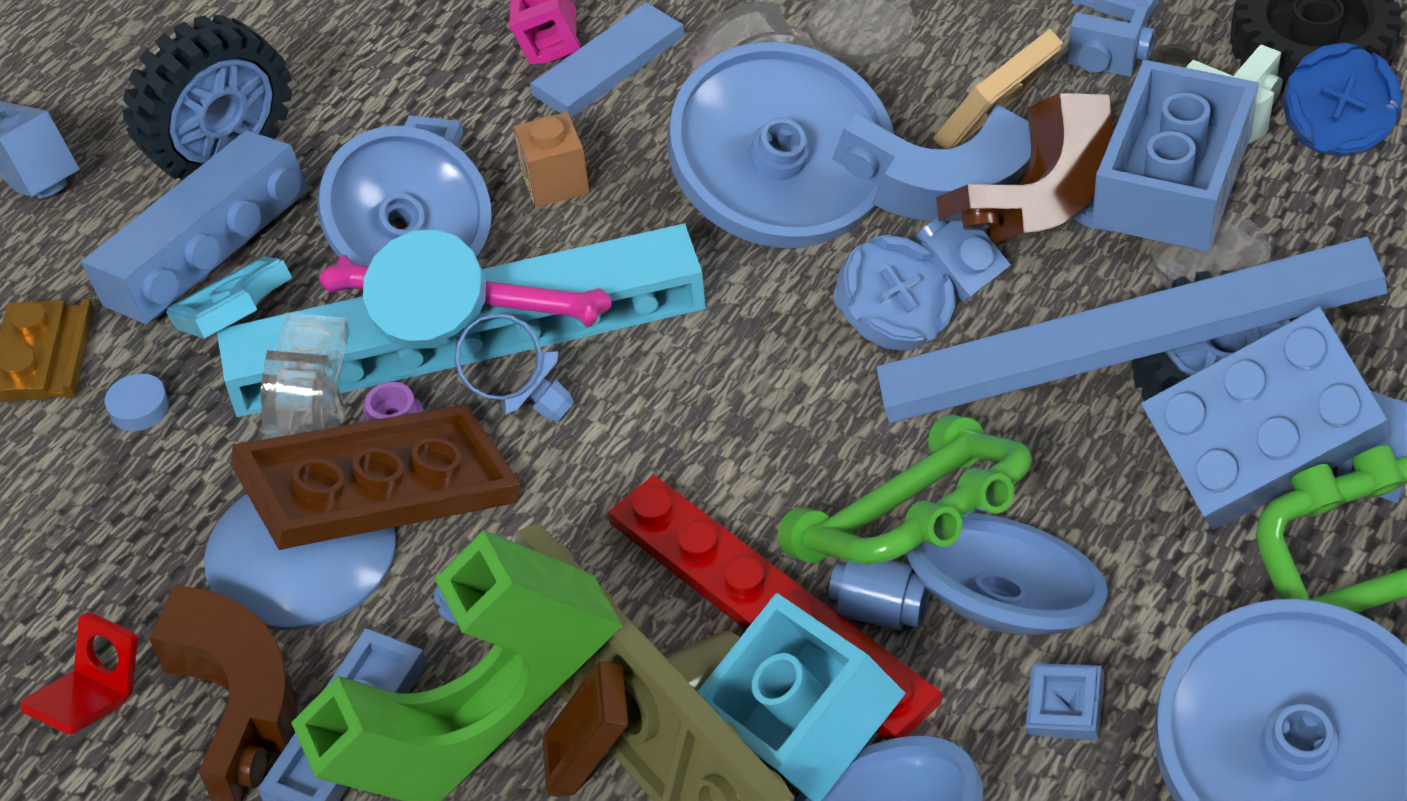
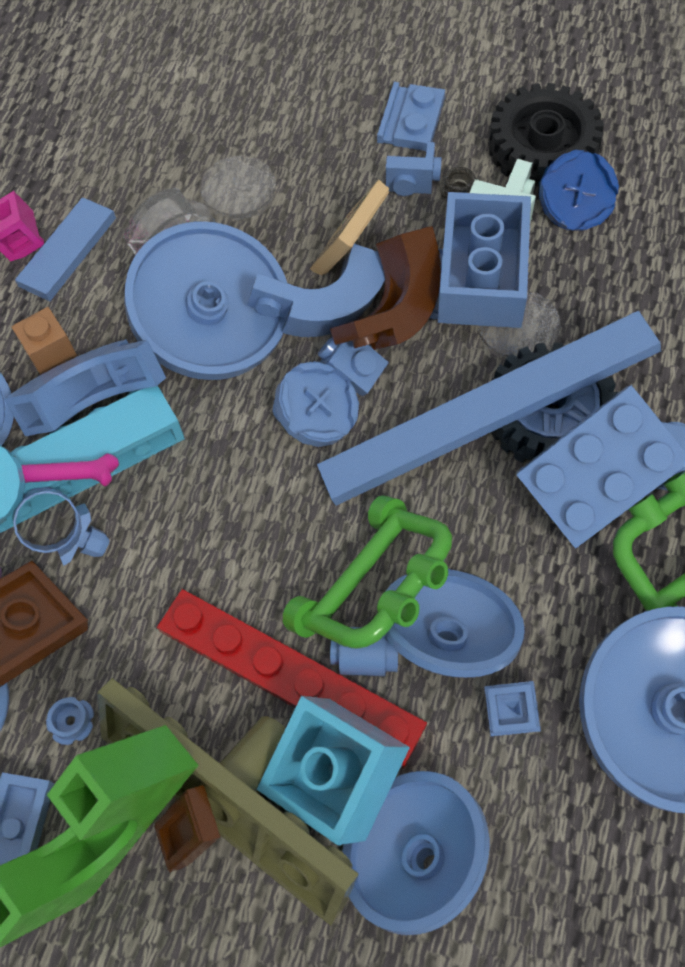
camera: 15 degrees left, 15 degrees up
(591, 211) = (81, 382): none -> medium blue arch

